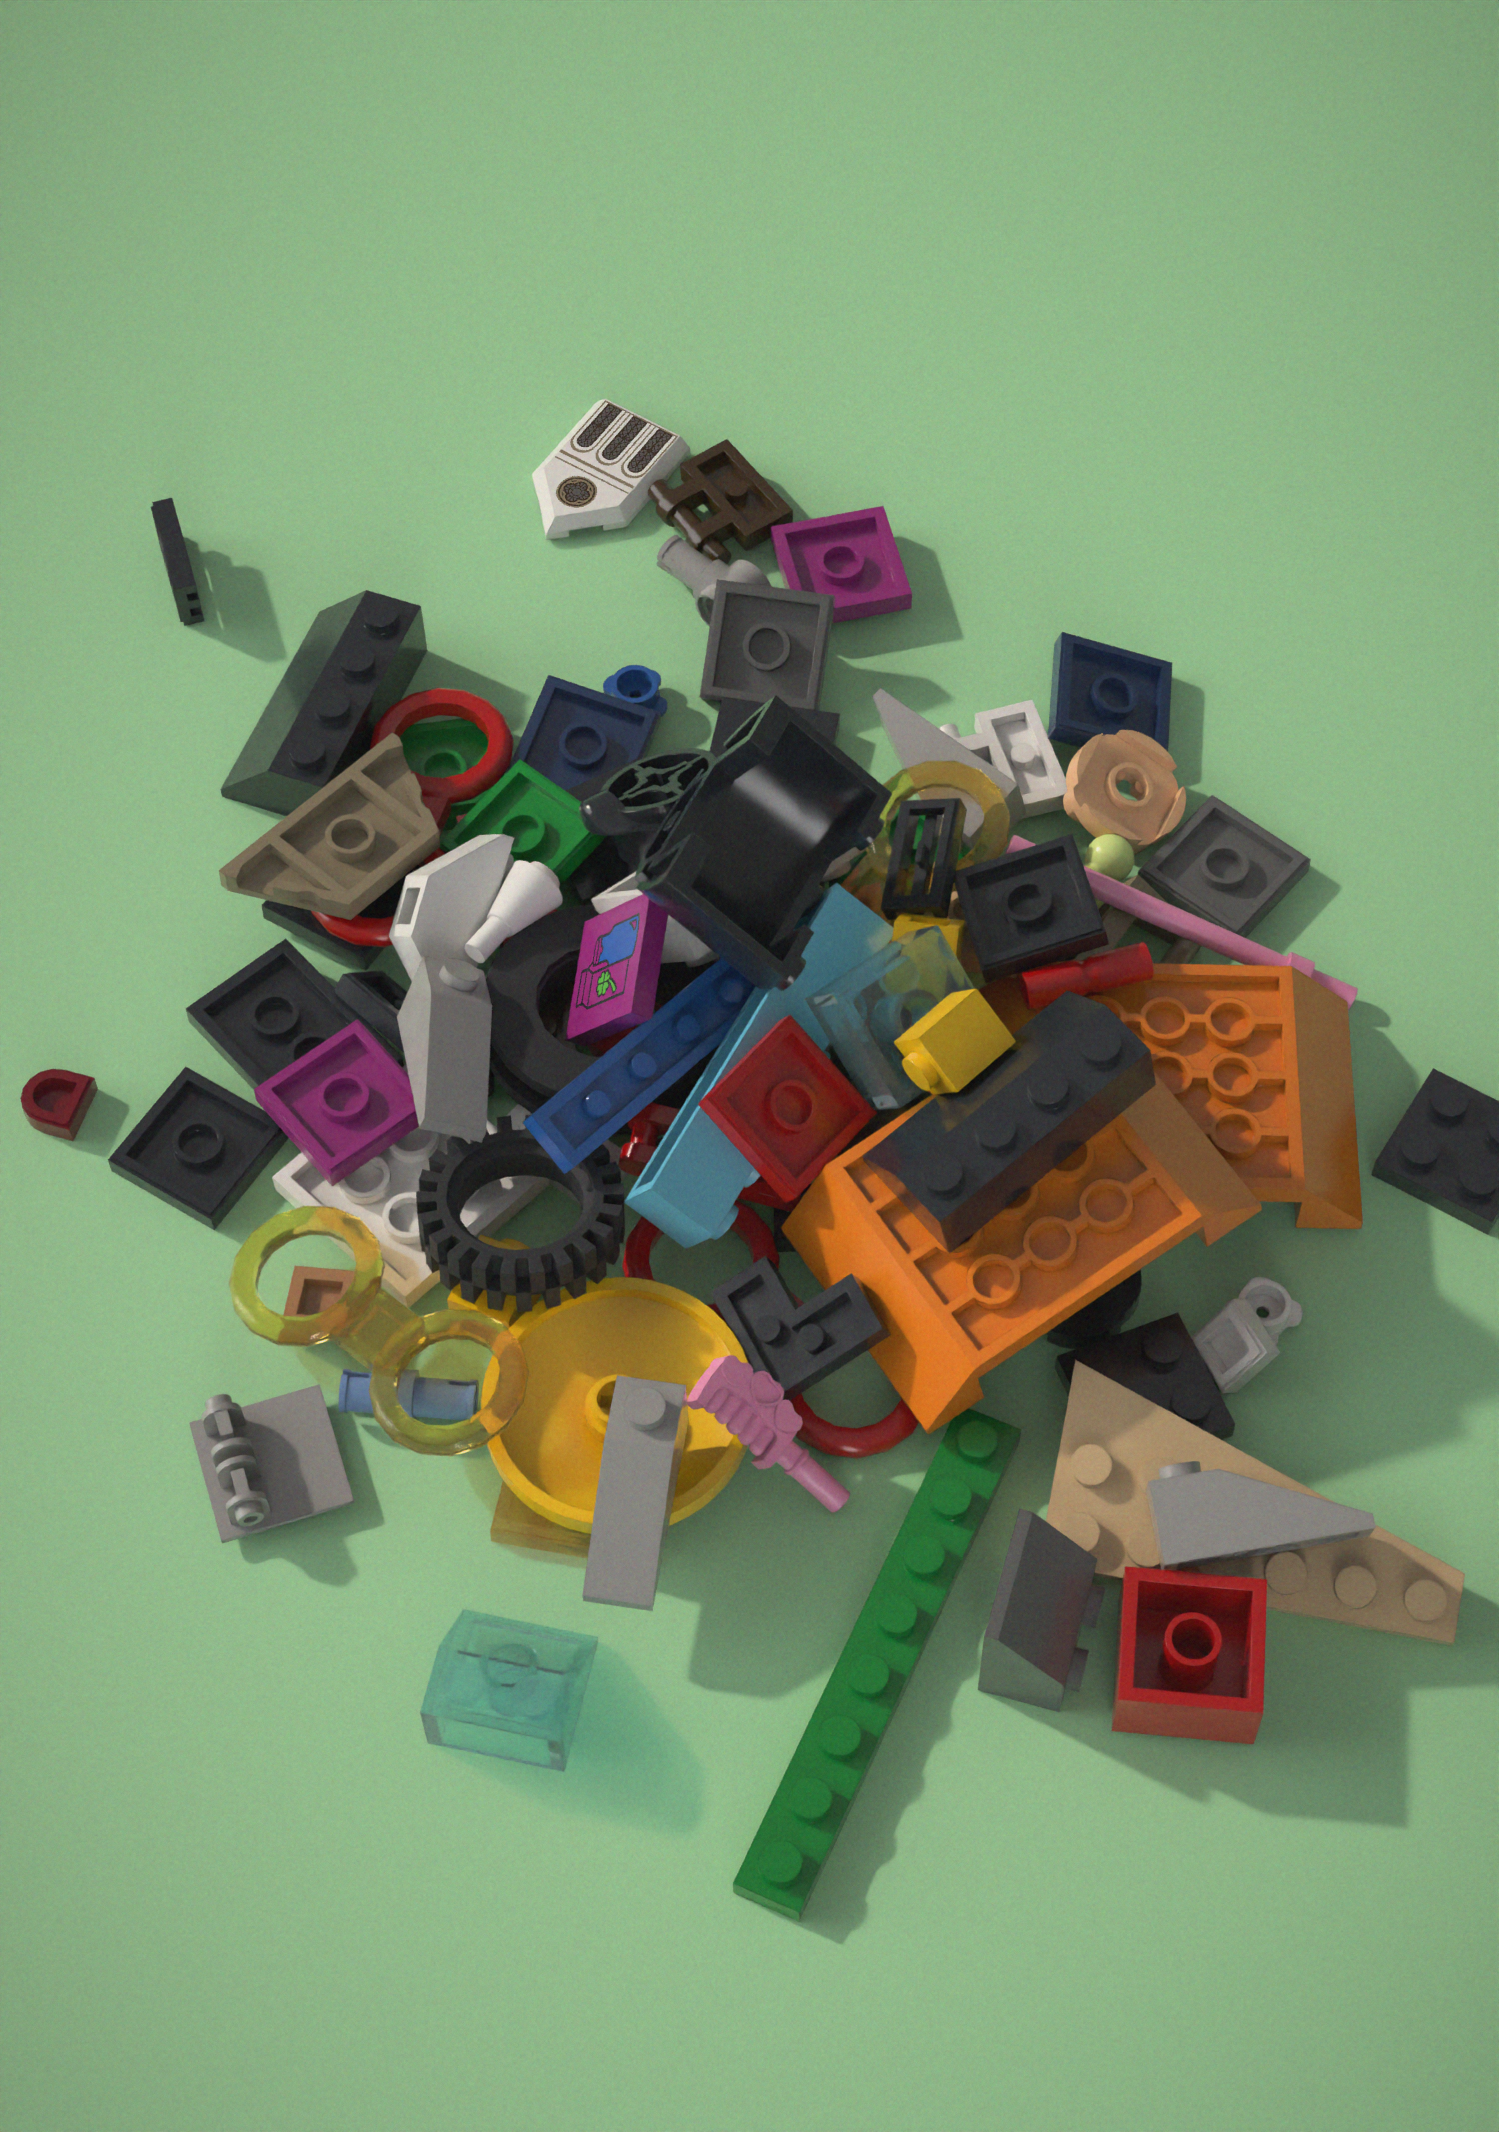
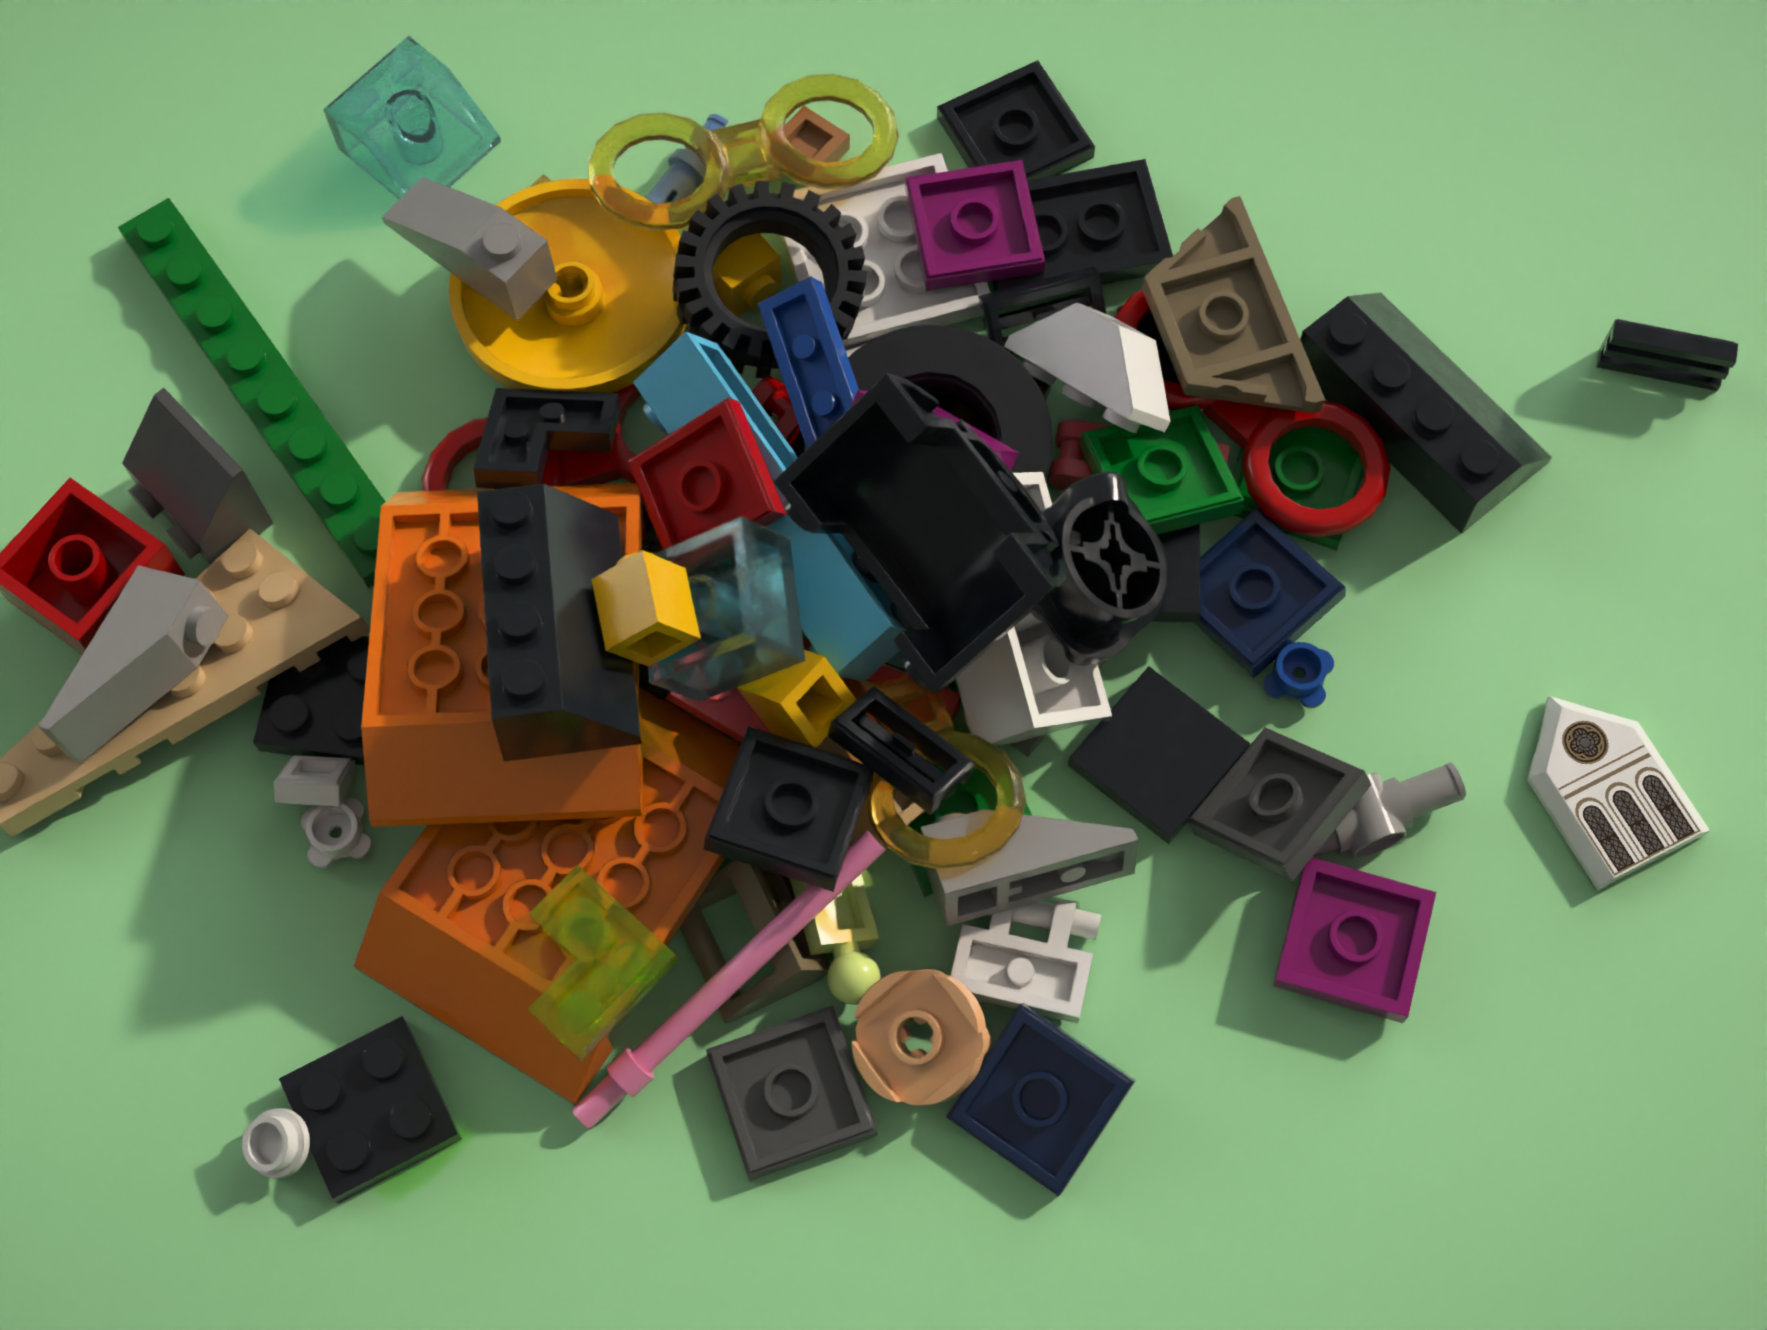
camera: 120 degrees right, 10 degrees up
(58, 1101) = (1119, 53): dark red tile -> none
(269, 1461) = (700, 61): light grey hinge -> none
(448, 1046) = (941, 279): light grey slope -> none
(525, 897) = (1071, 414): white cone -> none
(732, 491) = (1501, 888): dark brown plate -> none
(758, 1414) = (478, 368): bright pink piece -> none
(1094, 973) = (687, 858): red piece -> none
(1248, 967) = (612, 965): none -> clear neon green plate

